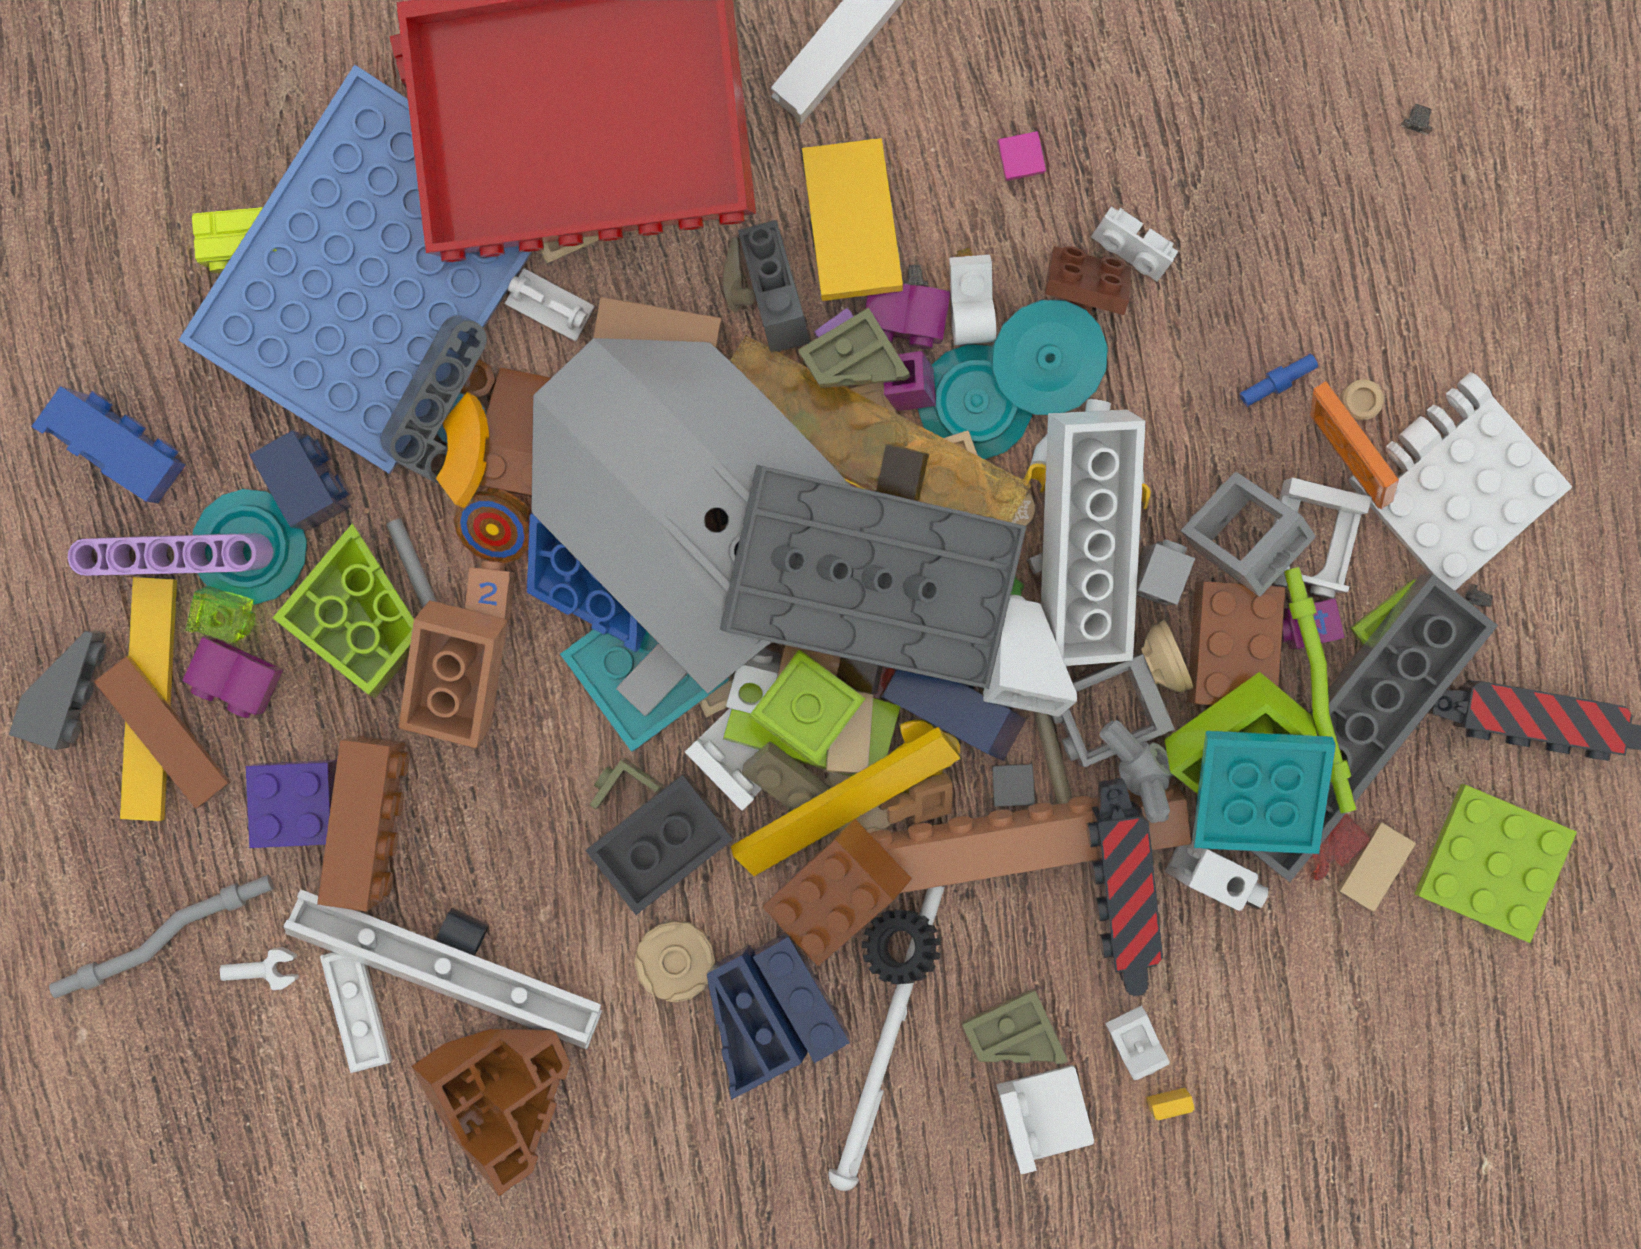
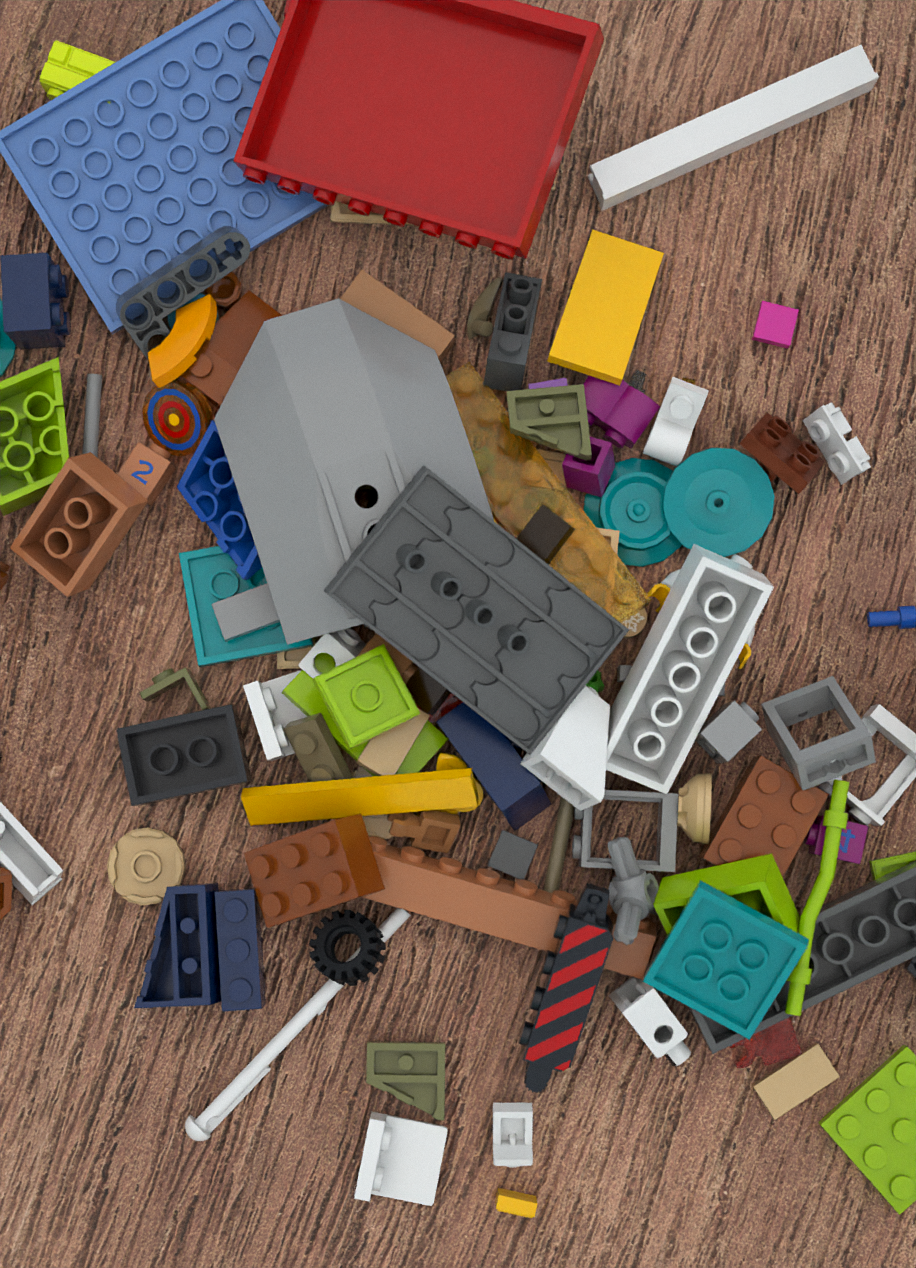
camera: 30 degrees right, 5 degrees down
(548, 304) = (315, 257): white hinge -> none

